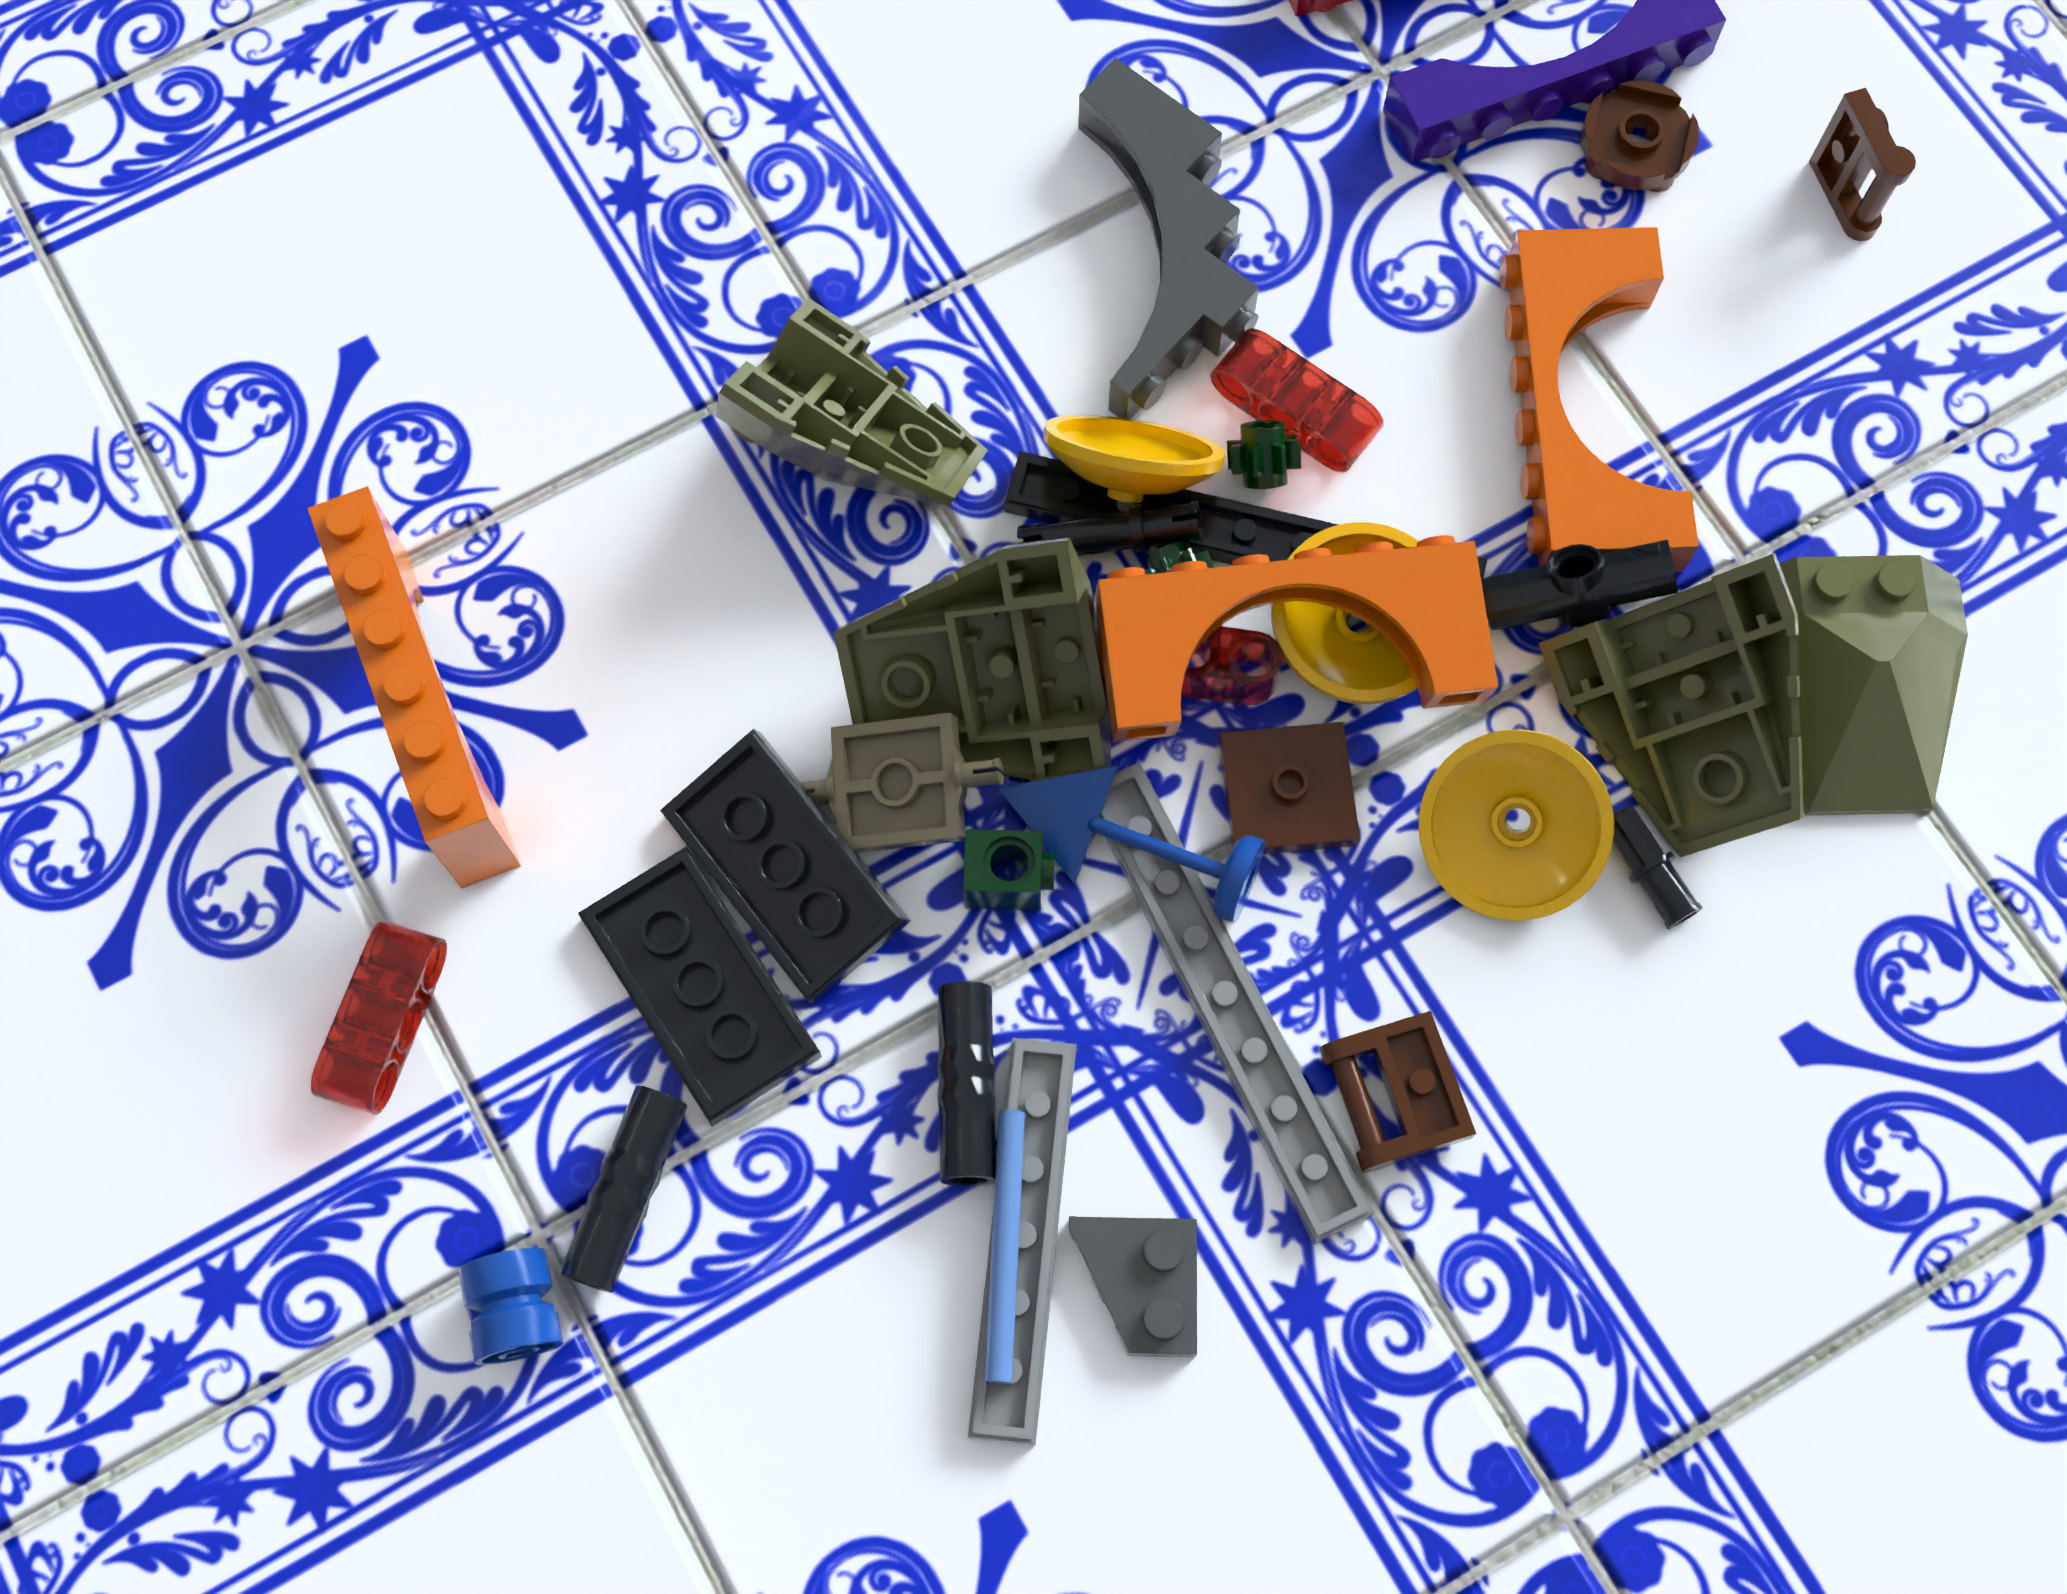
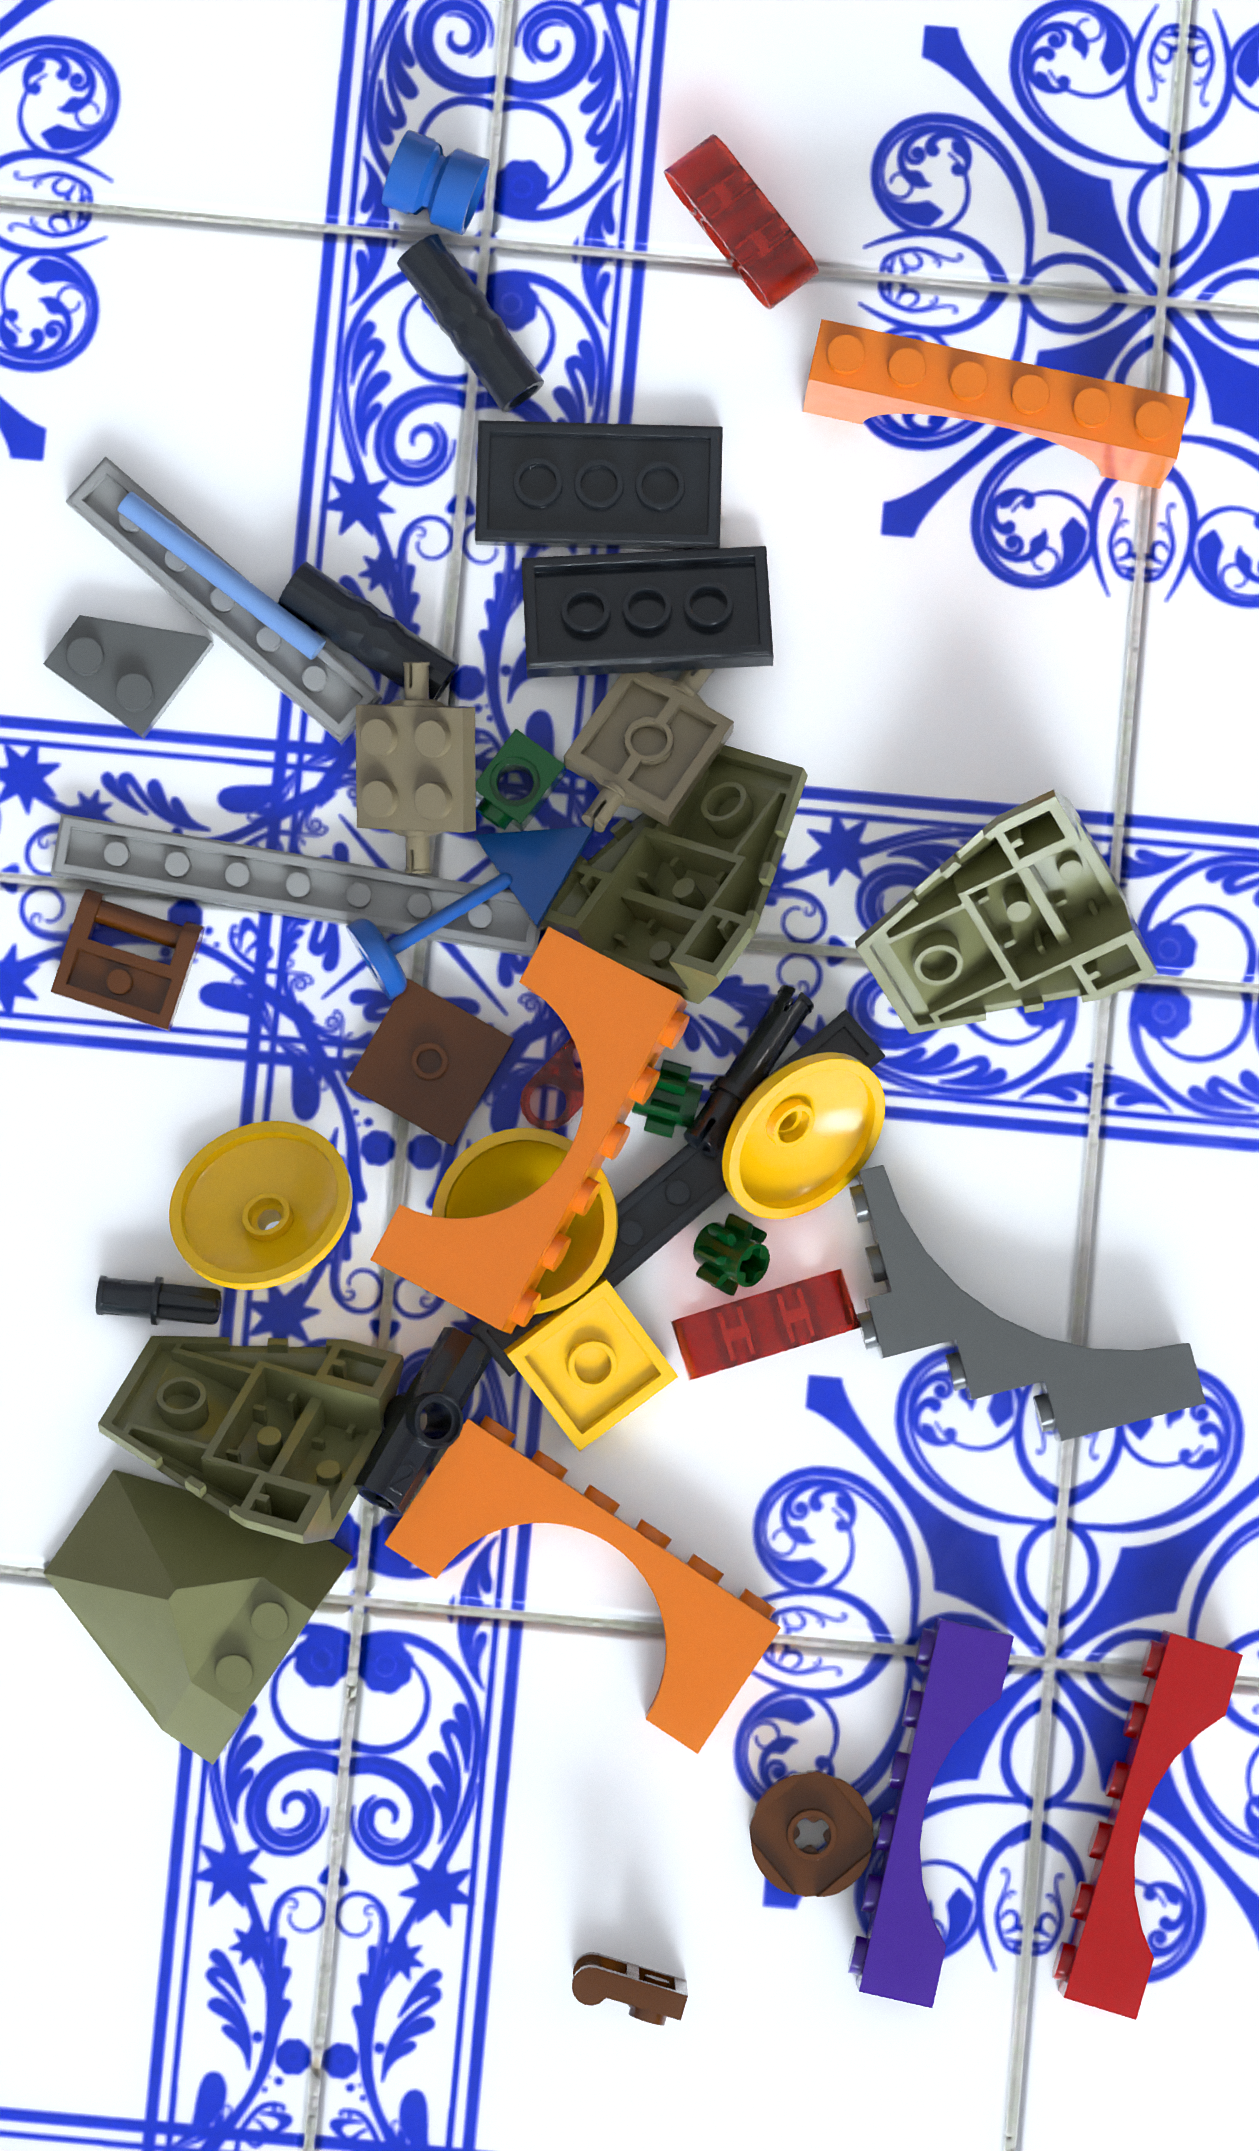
camera: 125 degrees right, 15 degrees up
(1054, 954) = (416, 767): none -> dark tan plate
(1431, 491) = (591, 1363): none -> yellow plate

